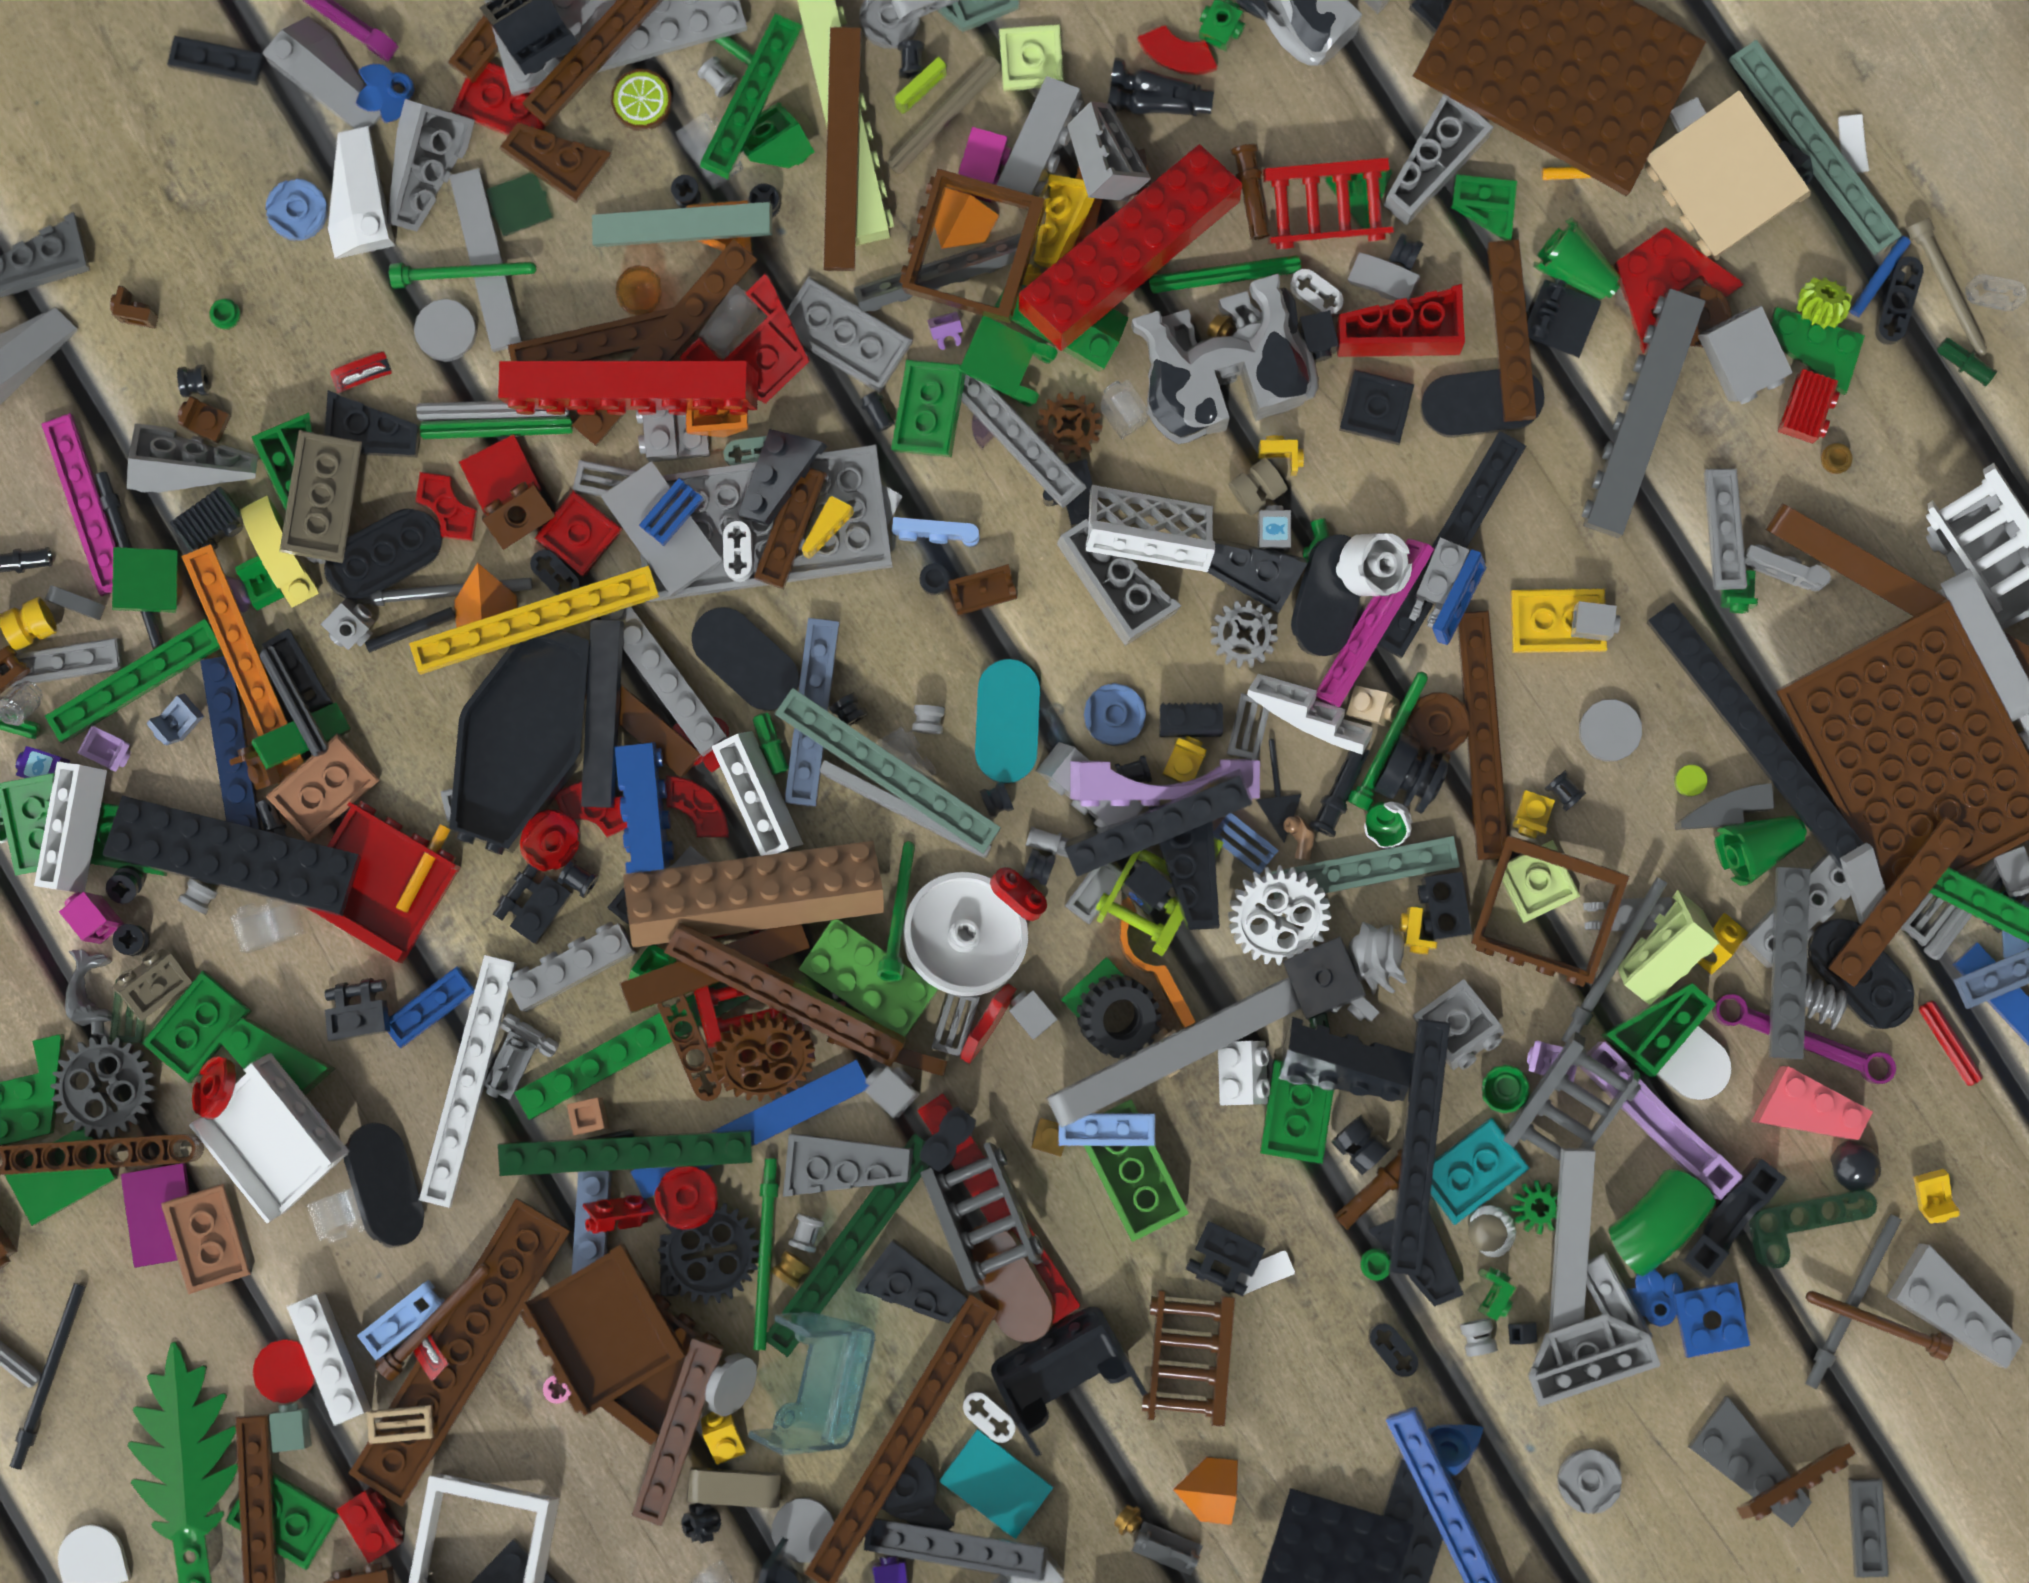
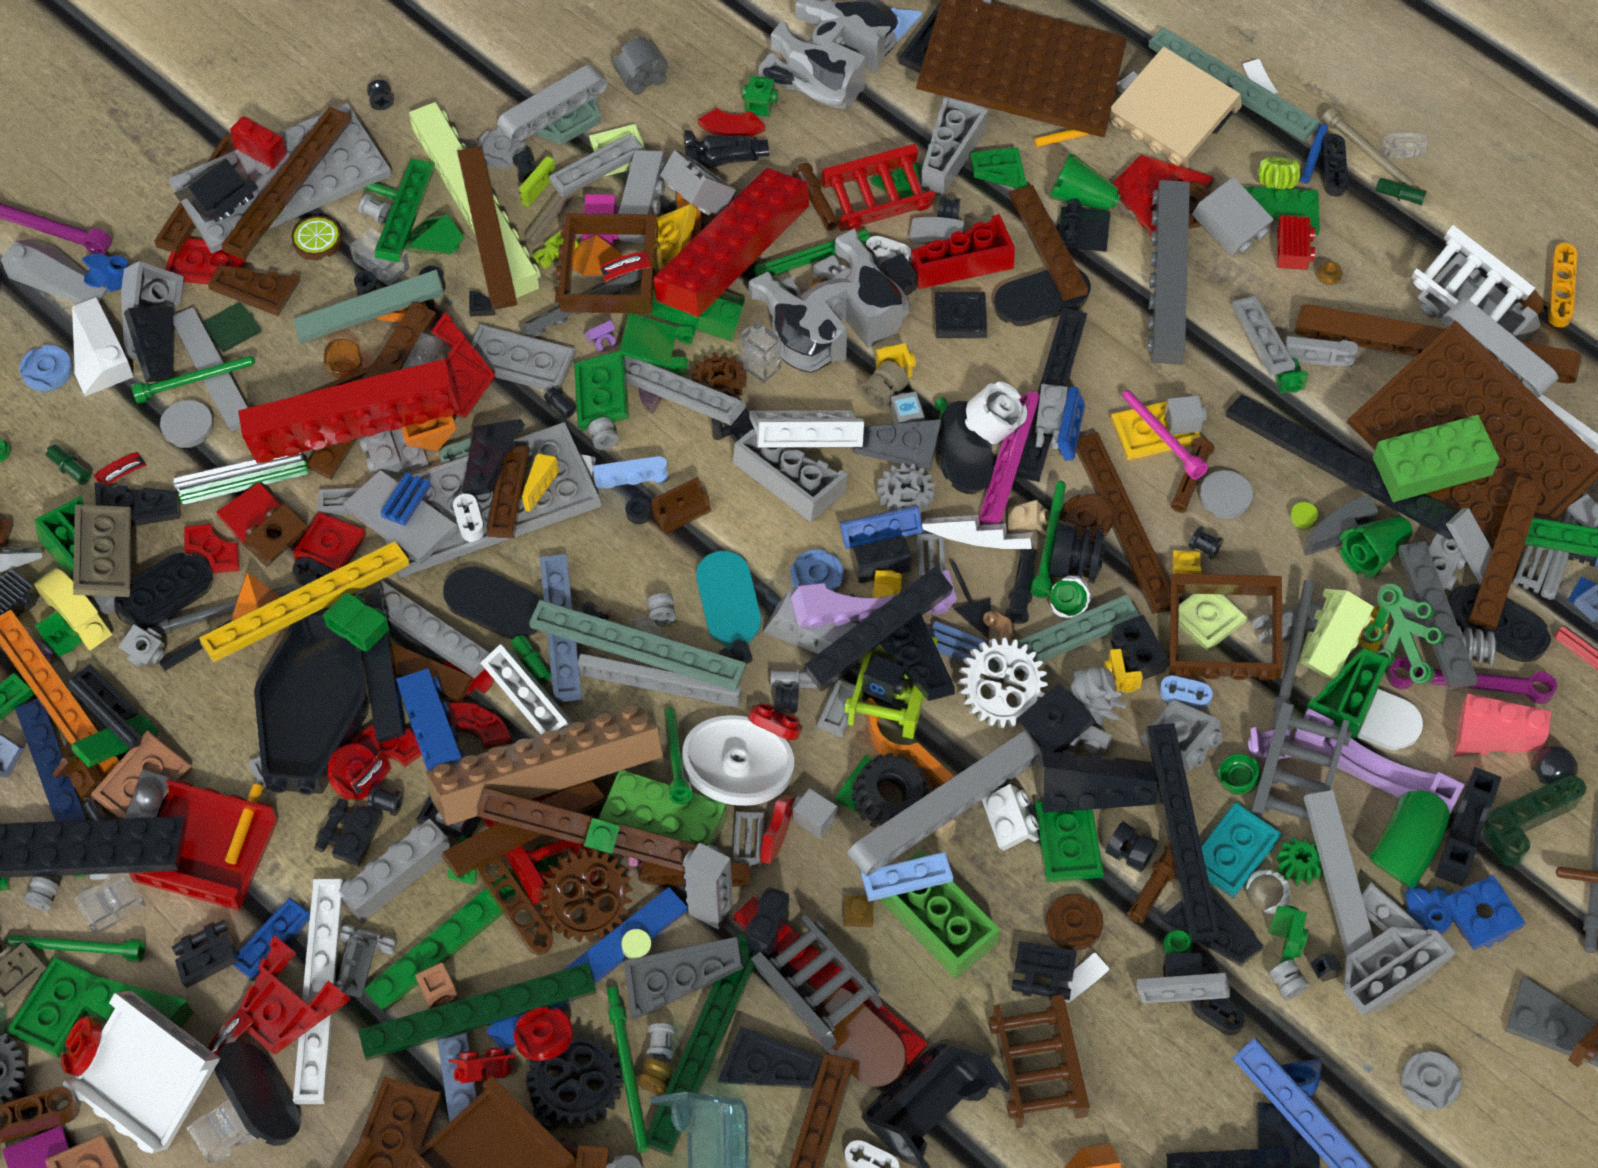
camera: 20 degrees left, 25 degrees down
(282, 984) = (132, 949): none -> green piece
(302, 353) = (68, 464): none -> dark green axle
(324, 815) = (147, 795): none -> flat silver tile
(367, 1108) = (230, 1031): none -> sticker
(416, 1097) = (277, 1010): none -> red wing
(423, 210) = (153, 340): none -> black wing
(569, 848) = (371, 775): none -> sticker
(585, 663) = (356, 621): none -> green brick
(793, 1006) = (602, 835): none -> green plate
(806, 1119) = (636, 944): none -> yellowish green tile
(812, 245) = (479, 305): none -> black tile
(915, 192) = (548, 254): none -> lime plate
(917, 468) = (603, 433): none -> light grey wheel
(990, 262) = (625, 264): none -> sticker
(996, 80) = (595, 165): none -> light grey tile
(1202, 676) = (881, 526): none -> blue tile
(1275, 1209) = (1074, 922): none -> reddish brown tile
(1362, 1323) = (1183, 988): none -> light grey tile
(1371, 1300) = (1183, 964): none -> black brick
(1484, 964) = (1186, 692): none -> light blue beam
(1582, 694) = (1194, 465): none -> dark pink piece
(1589, 683) = (1187, 484): none -> reddish brown pin
(1746, 972) = (1403, 630): none -> green plant
(1858, 773) = (1435, 458): none -> bright green brick

